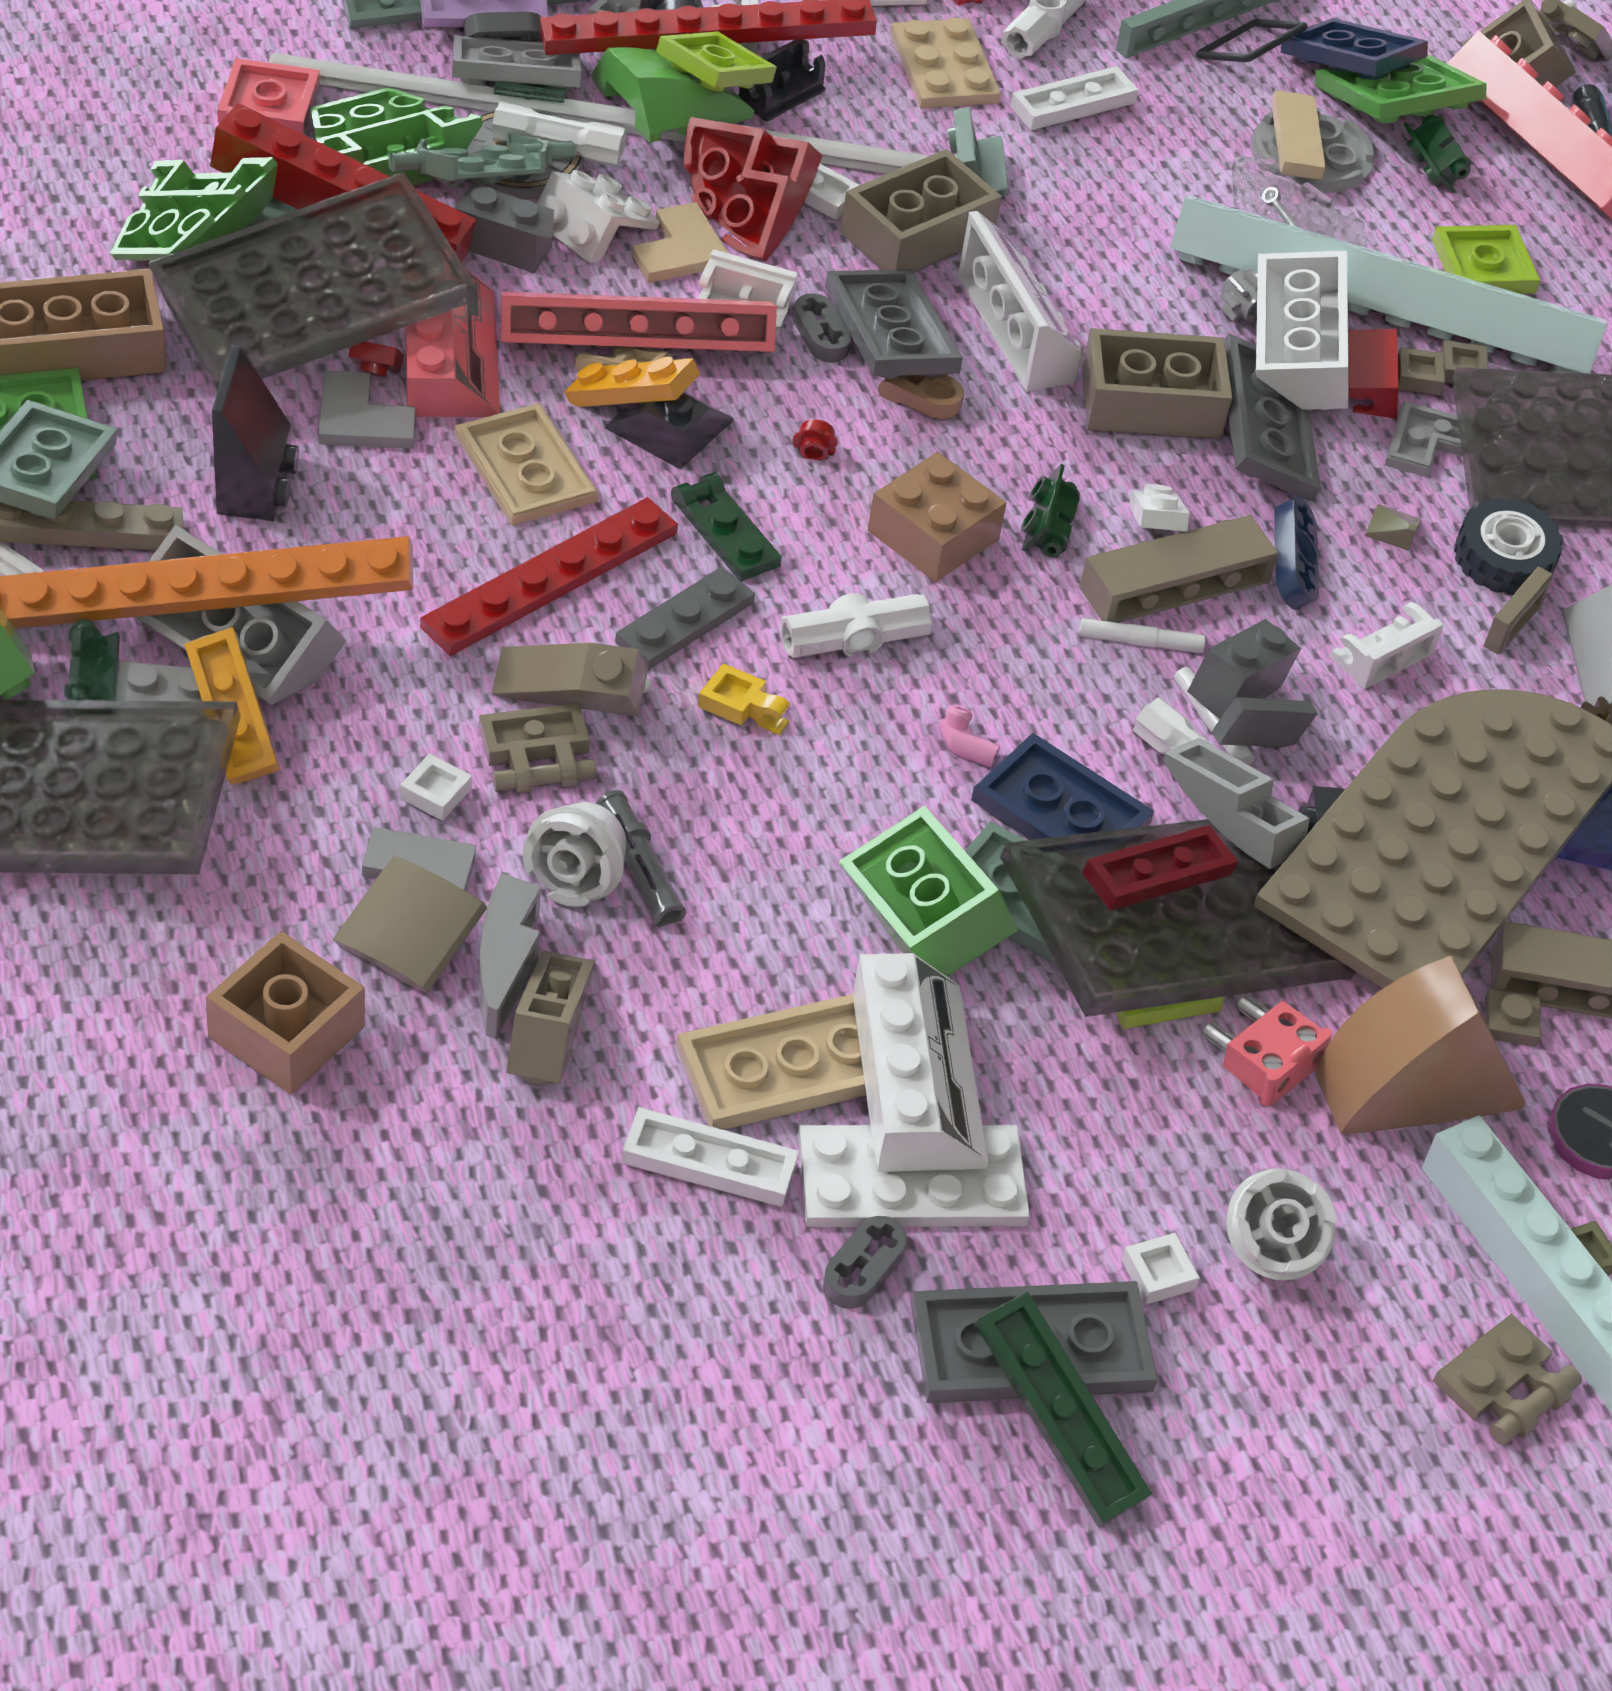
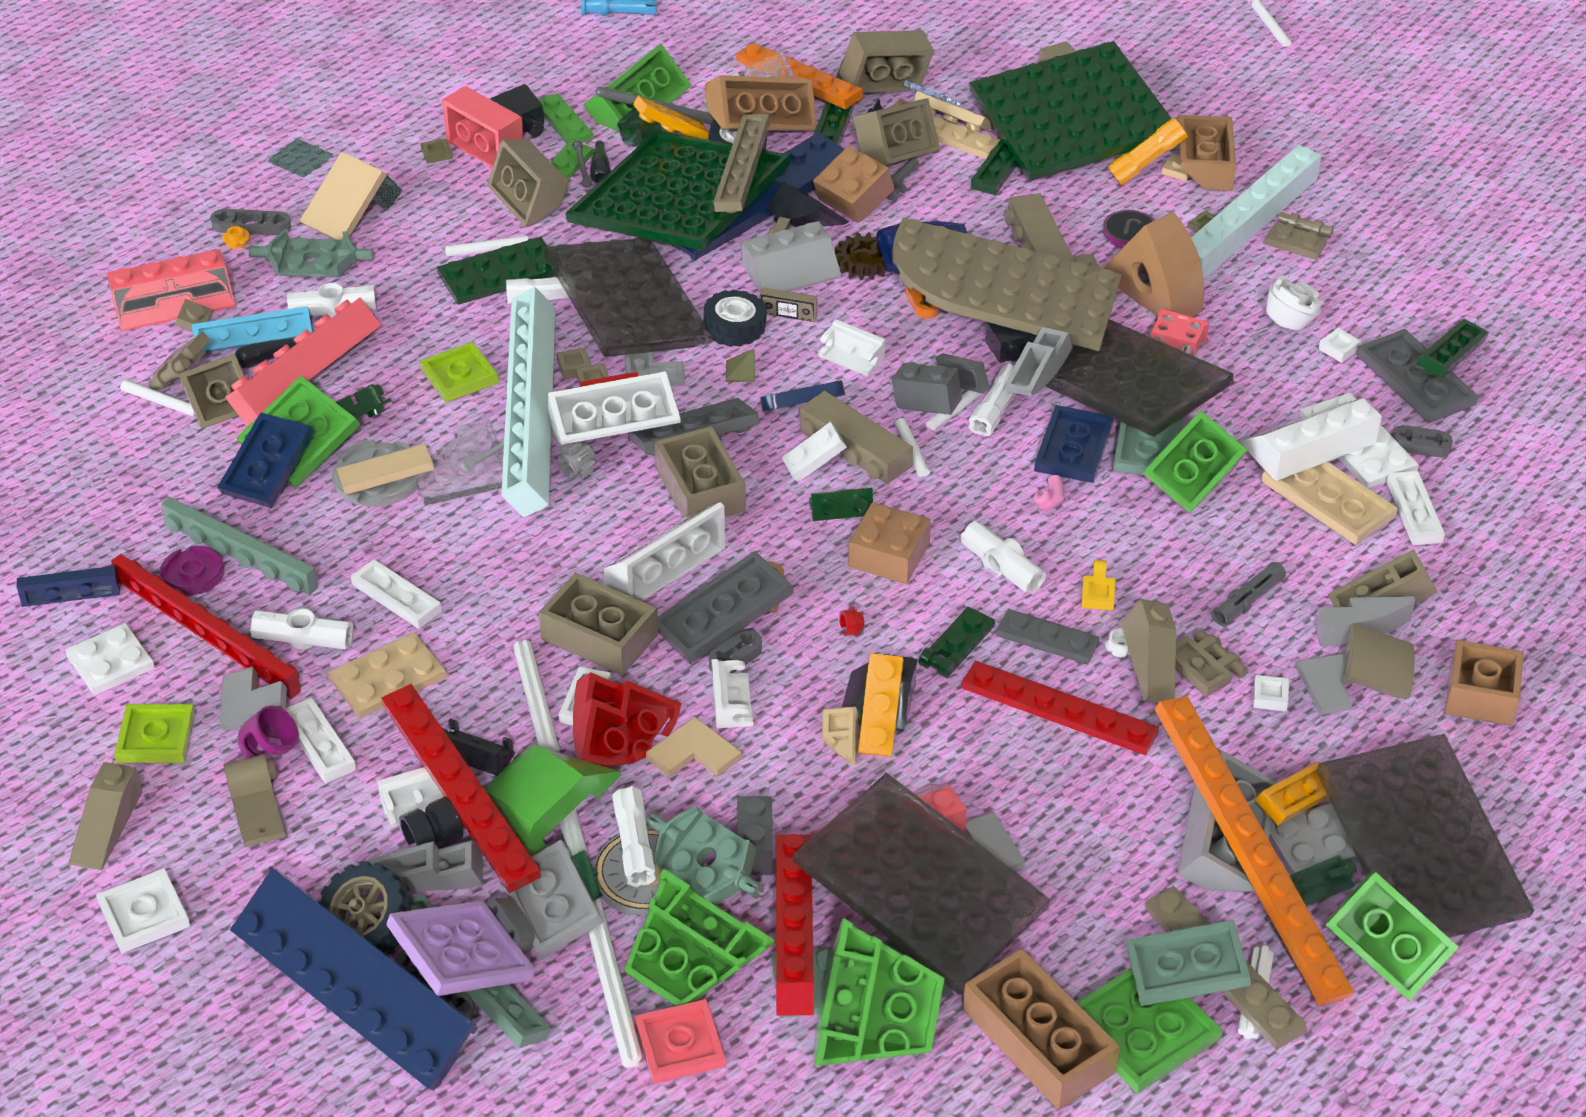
camera: 105 degrees left, 5 degrees down
(250, 444) = (1092, 865): black slope -> none
(526, 464) = (969, 754): tan tile -> none
(576, 852) = (1277, 605): white cone -> none
(591, 210) = (706, 786): white bracket -> none
(638, 321) = (807, 728): coral brick -> none
(715, 60) = (519, 752): lime plate -> none
(982, 156) = (509, 617): sand green bracket -> none
(1159, 867) = (1121, 371): dark red plate -> none
(1296, 28) = (310, 508): black piece -> none

